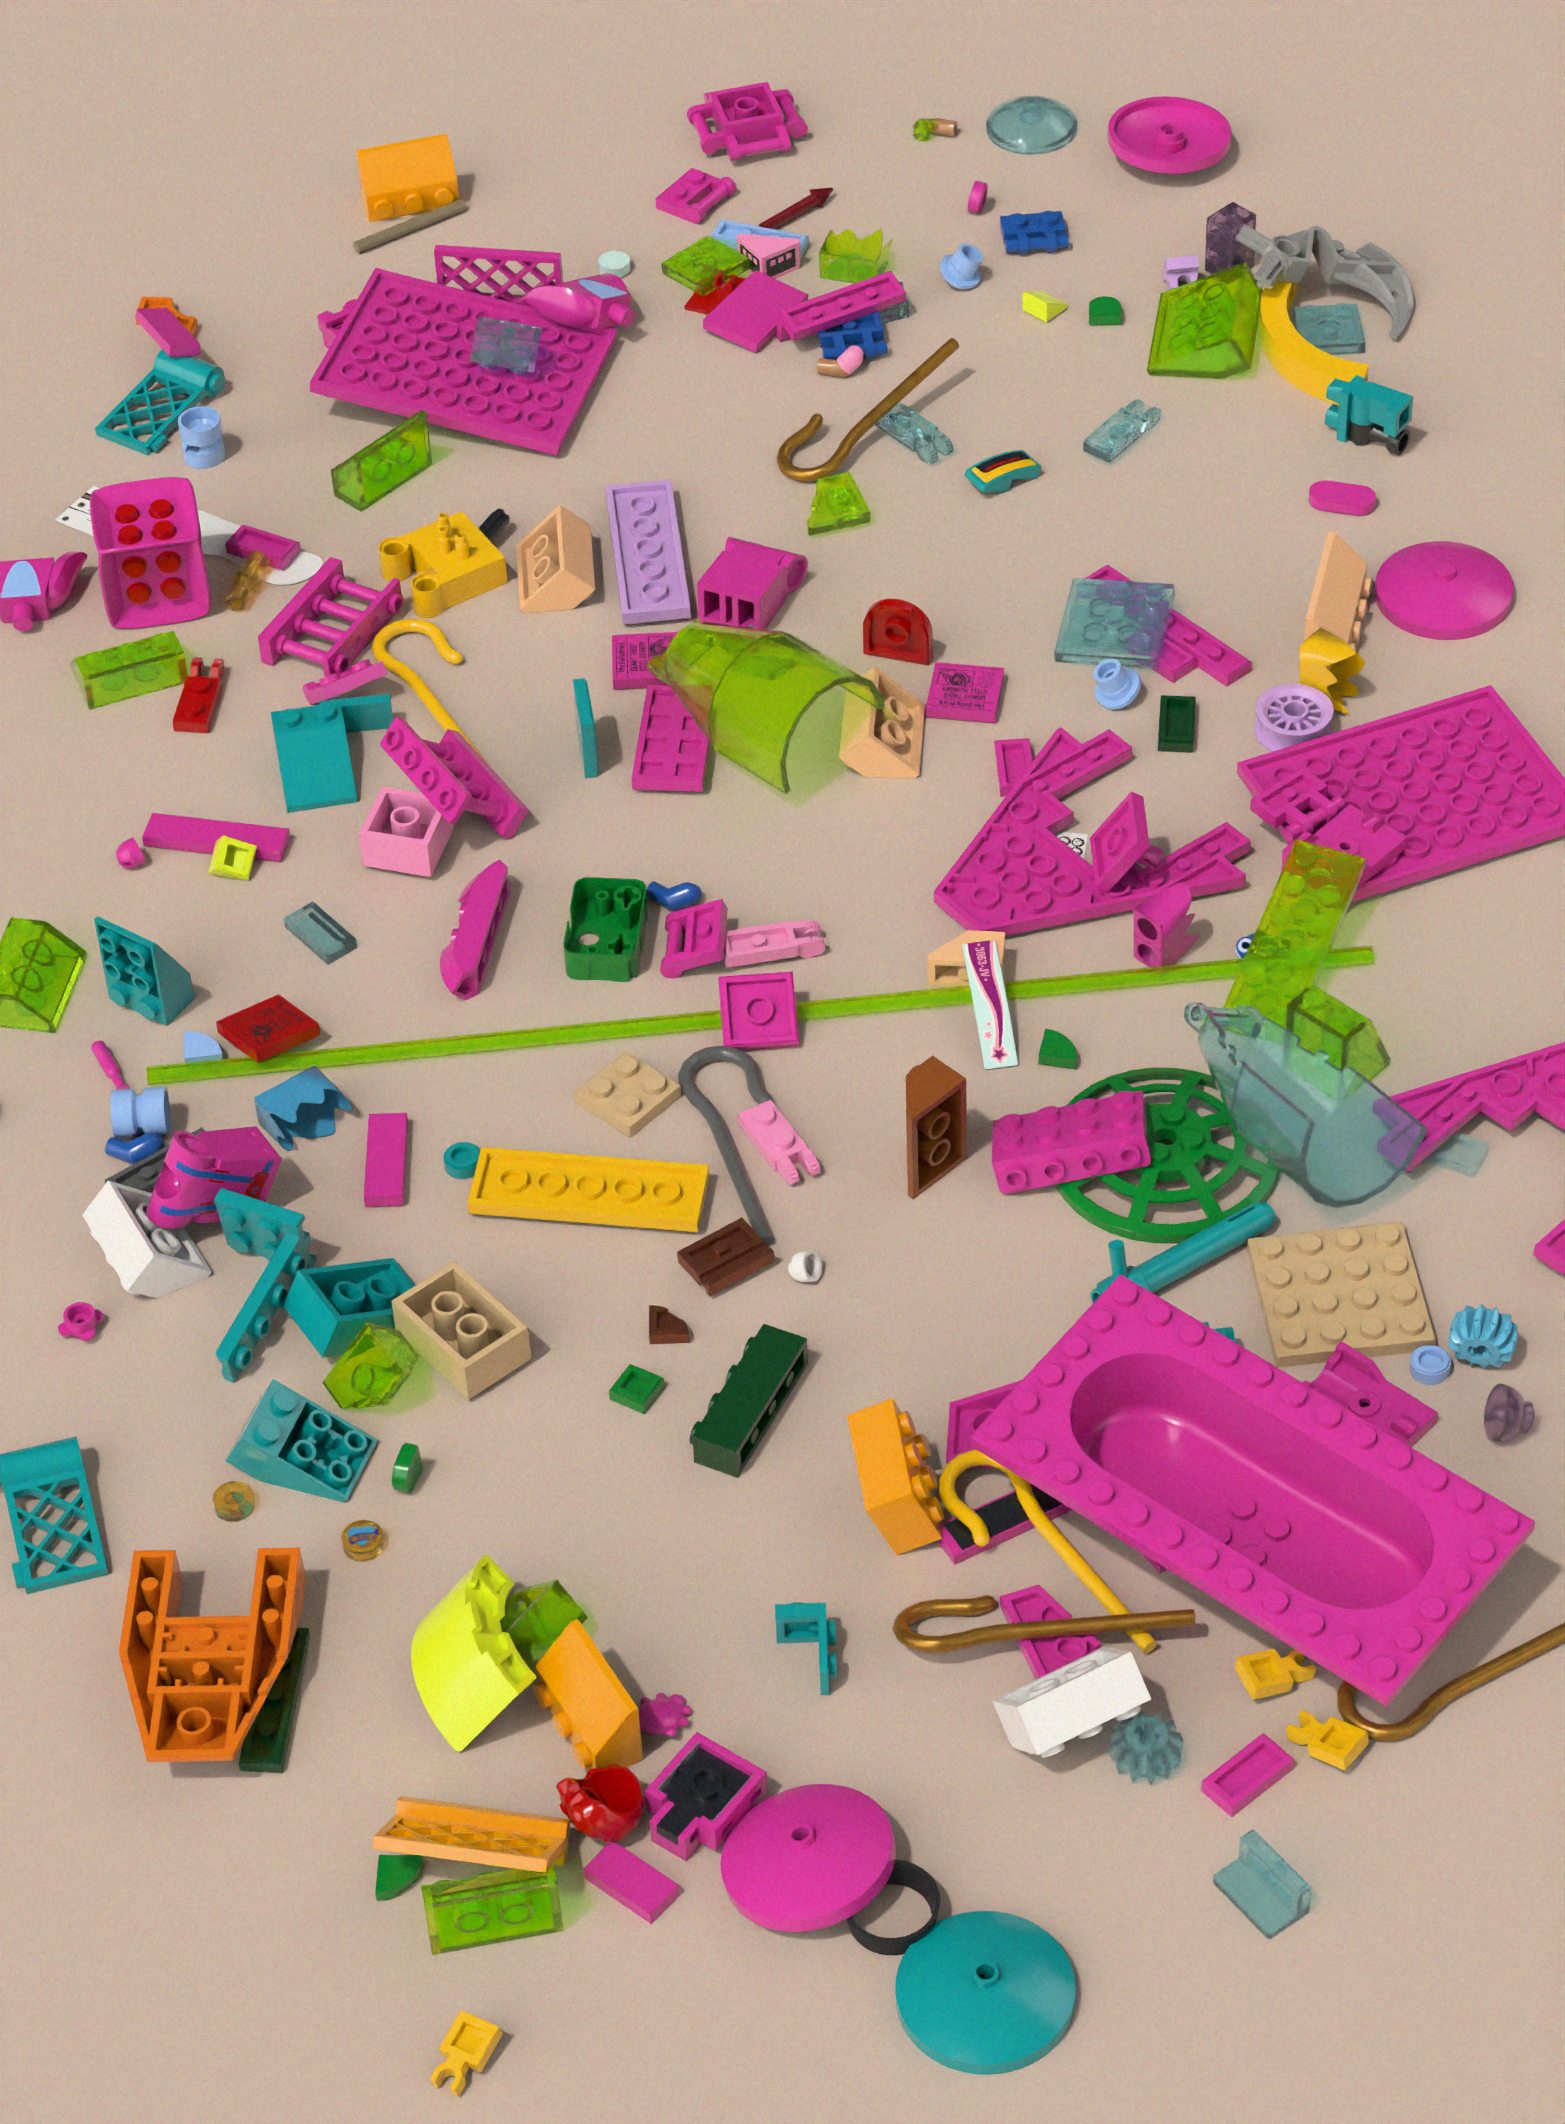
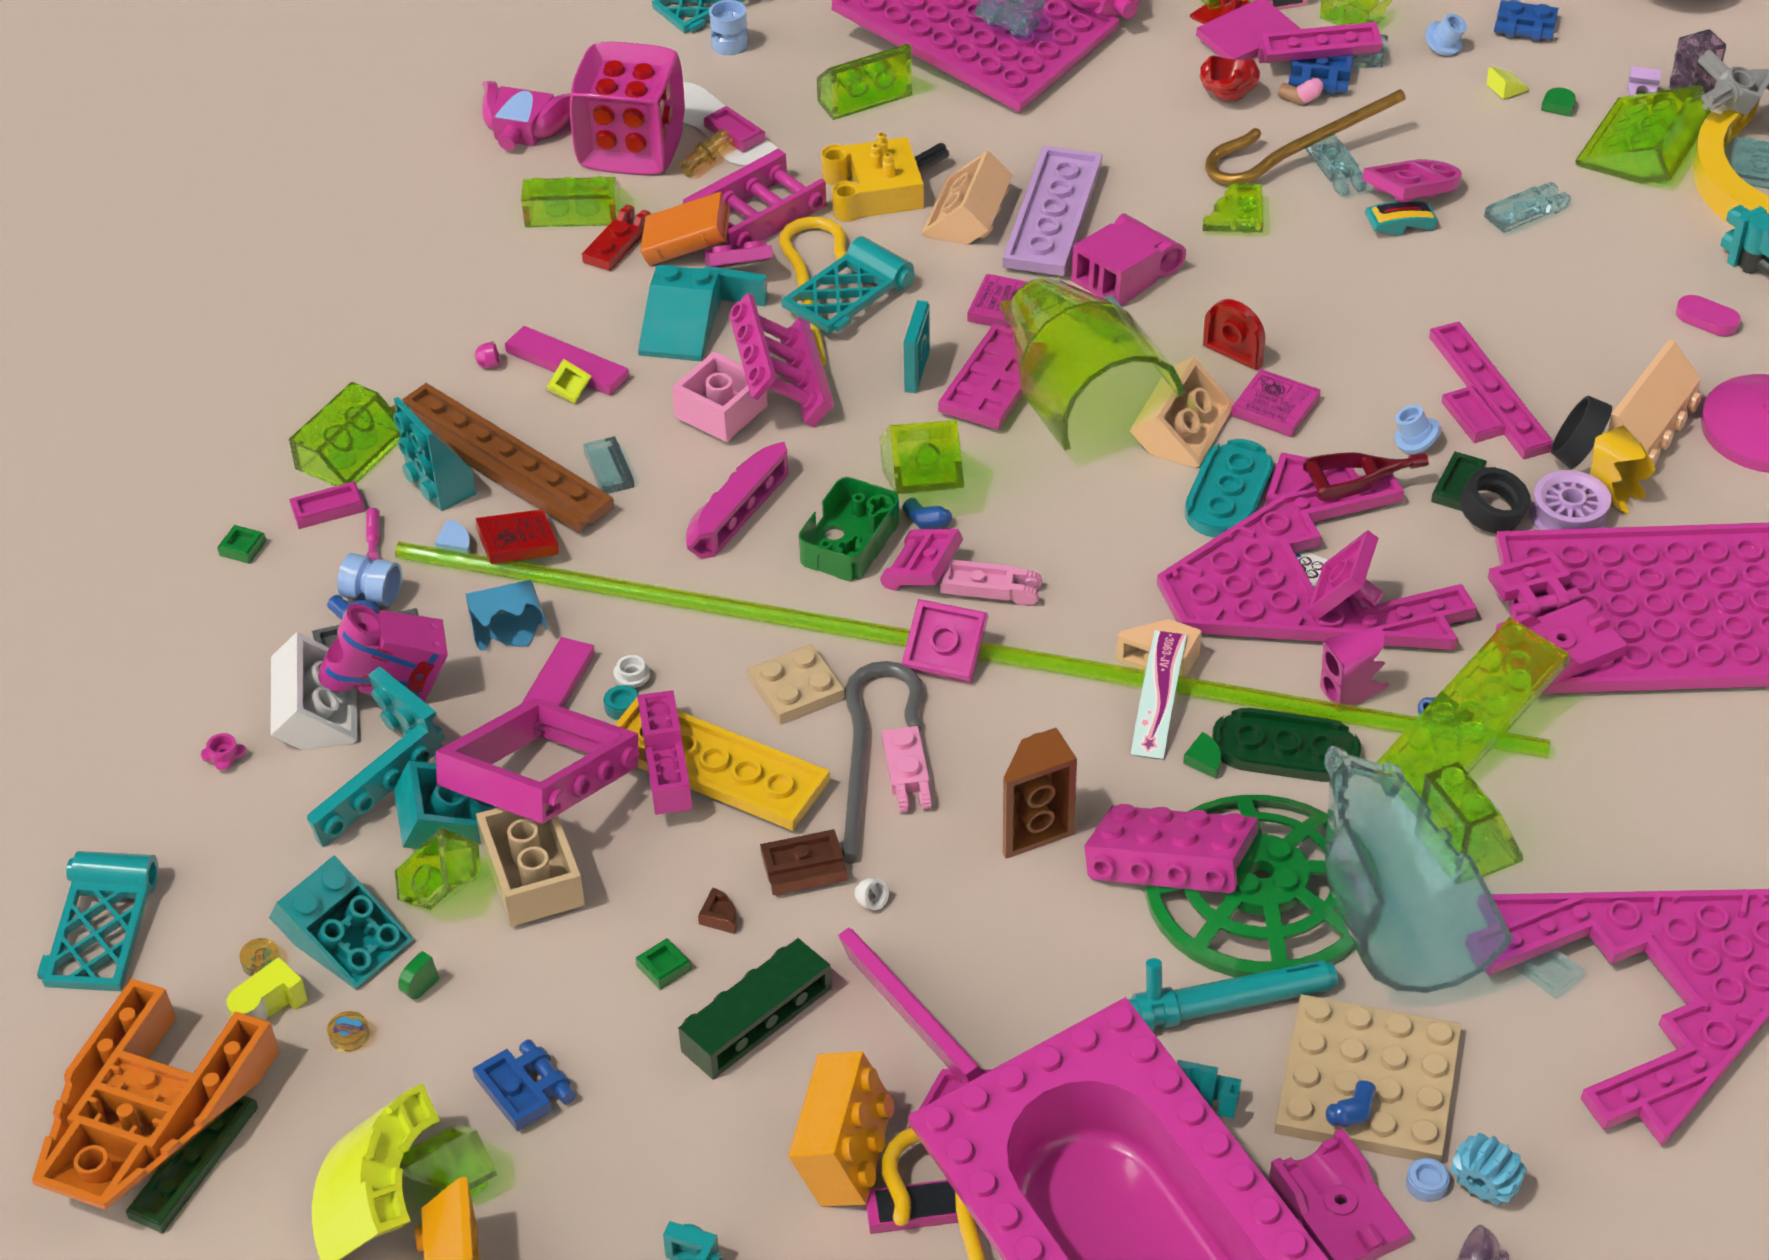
camera: 20 degrees right, 0 degrees up
(43, 1052) = (326, 505): none -> dark pink tile
(221, 955) = (511, 460): none -> dark orange plate
(265, 1528) = (268, 992): none -> neon yellow leg
(275, 667) = (685, 228): none -> orange piece
(363, 1263) = (468, 761): none -> dark pink window
(458, 1127) = (631, 671): none -> white plate
(490, 656) = (871, 264): none -> teal piece
(541, 1195) = (664, 752): none -> dark pink slope
(558, 1542) = (515, 1092): none -> blue plate
(651, 838) = (922, 457): none -> clear neon green slope
(763, 366) = (1229, 77): none -> red hair
(903, 1356) = (909, 1007): none -> dark pink tile
(958, 788) = (1228, 486): none -> teal tile
(999, 428) = (1413, 178): none -> dark pink plate
(1090, 728) = (1375, 468): none -> dark red piece
(1114, 622) = (1441, 374): clear light blue plate -> none
(1125, 1018) = (1281, 742): none -> dark green tile
(1226, 716) = (1502, 483): none -> black tyre
(1278, 644) = (1579, 431): none -> black tyre
(1344, 1322) = (1353, 1110): none -> blue arm

